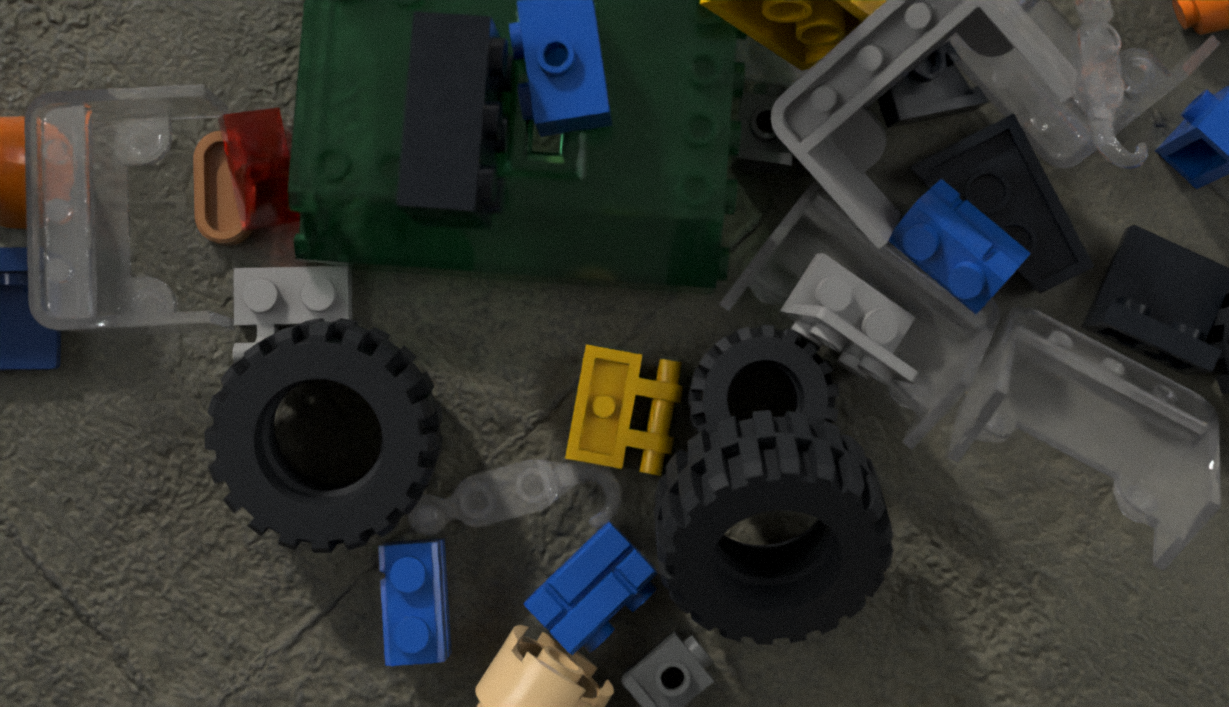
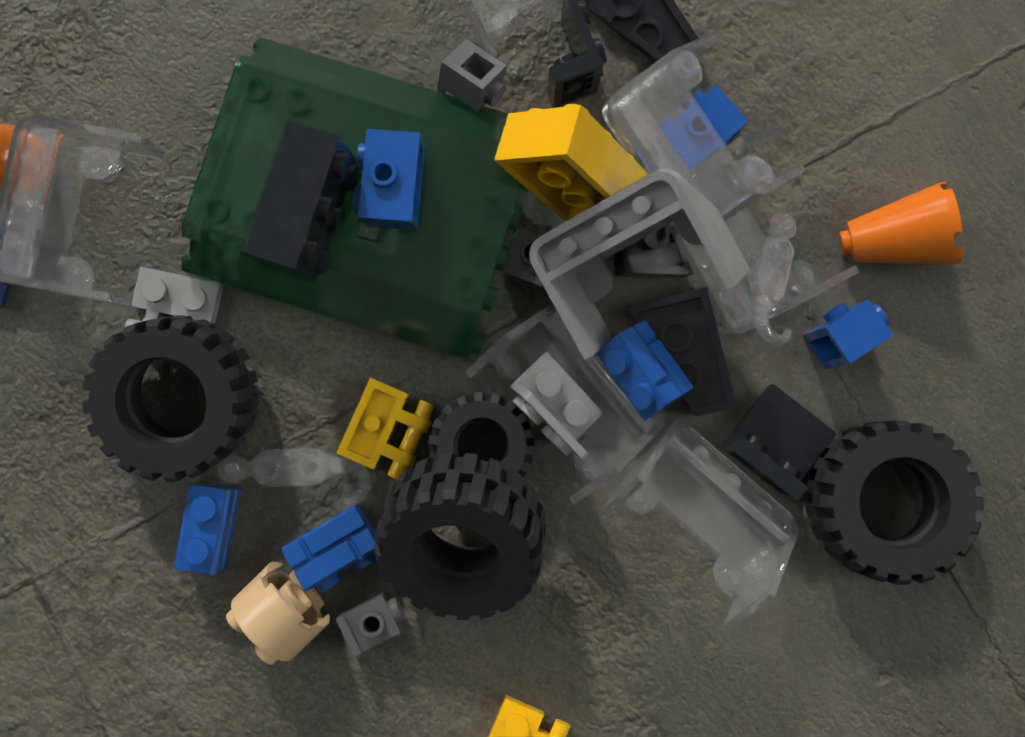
camera: 10 degrees right, 0 degrees up
(214, 195) = (148, 209): medium nougat tile -> none
(258, 167) = (171, 195): clear red slope -> none

